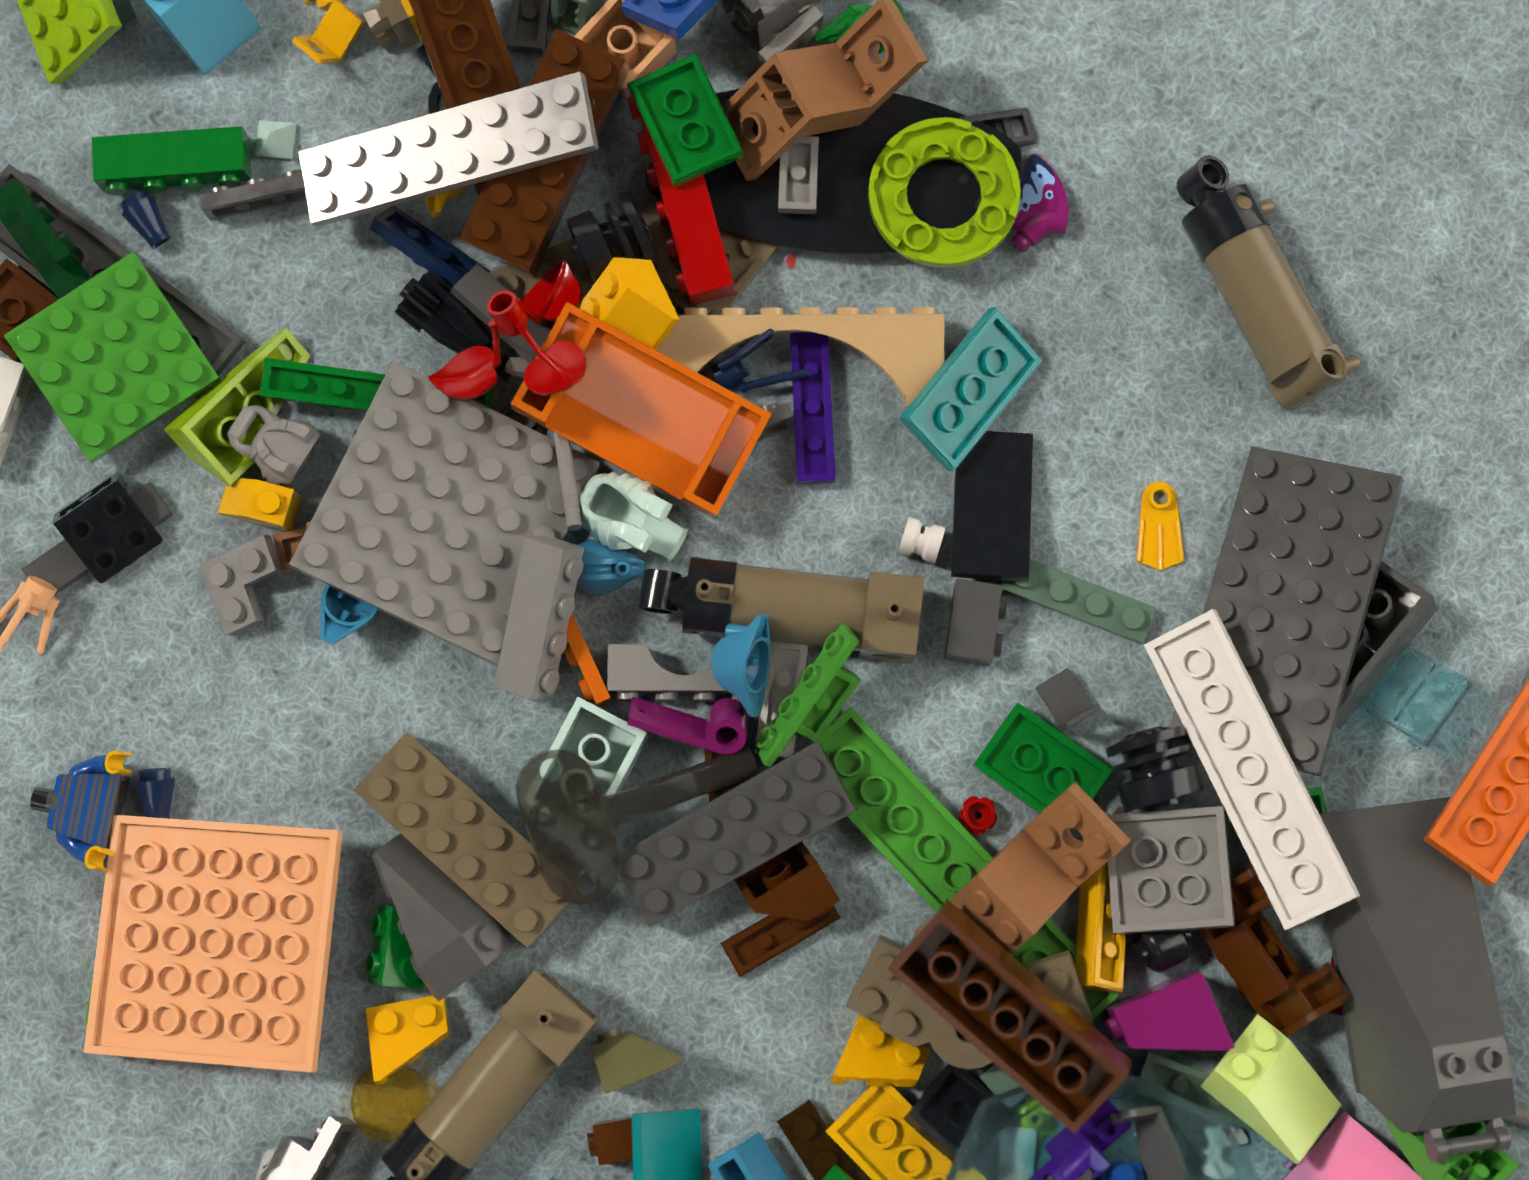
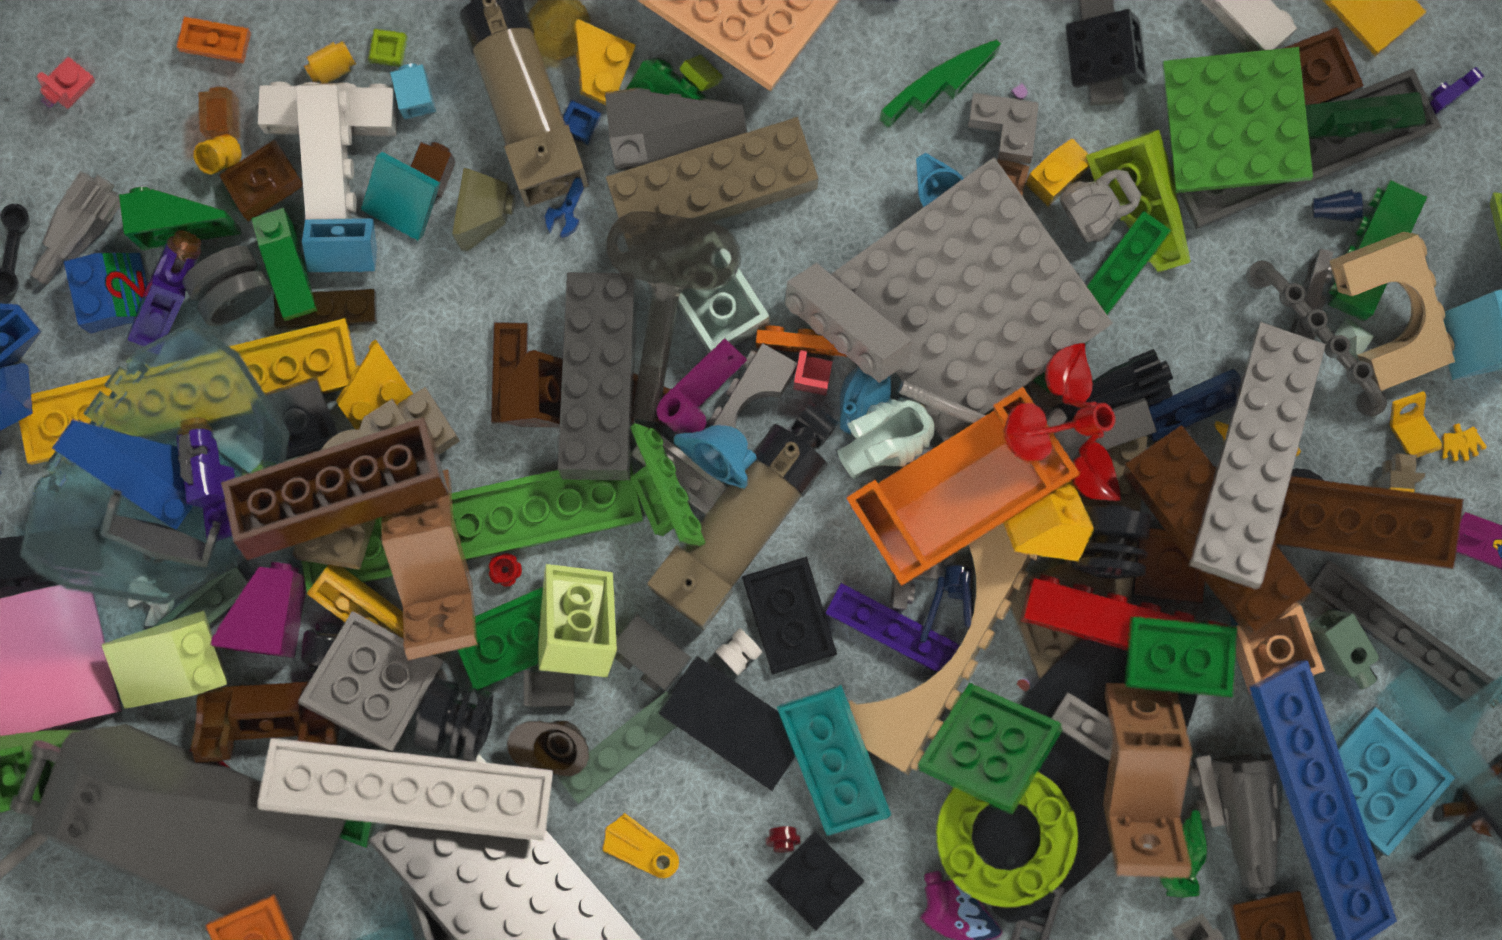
camera: 120 degrees right, 0 degrees up
(197, 591) = (1020, 92): none -> lavender piece
(224, 666) = (947, 77): none -> green slope
(239, 67) = (1424, 341): none -> tan arch
(324, 90) = (1372, 399): none -> dark grey bar
(358, 921) = (701, 72): none -> lime tile
(478, 1016) = (581, 121): none -> blue tile
(578, 975) = (566, 209): none -> blue bar
(604, 181) = (1167, 571): none -> reddish brown plate
(607, 627) = (812, 374): none -> coral panel
(856, 514) = (789, 615): none -> black tile
(873, 248) = (990, 747): none -> green plate
(987, 708) = (577, 621): none -> yellowish green slope
(1071, 397) = (783, 839): none -> dark red plate
(1089, 347) = (815, 880): none -> black plate
(1121, 661) = (549, 747): none -> dark brown piece

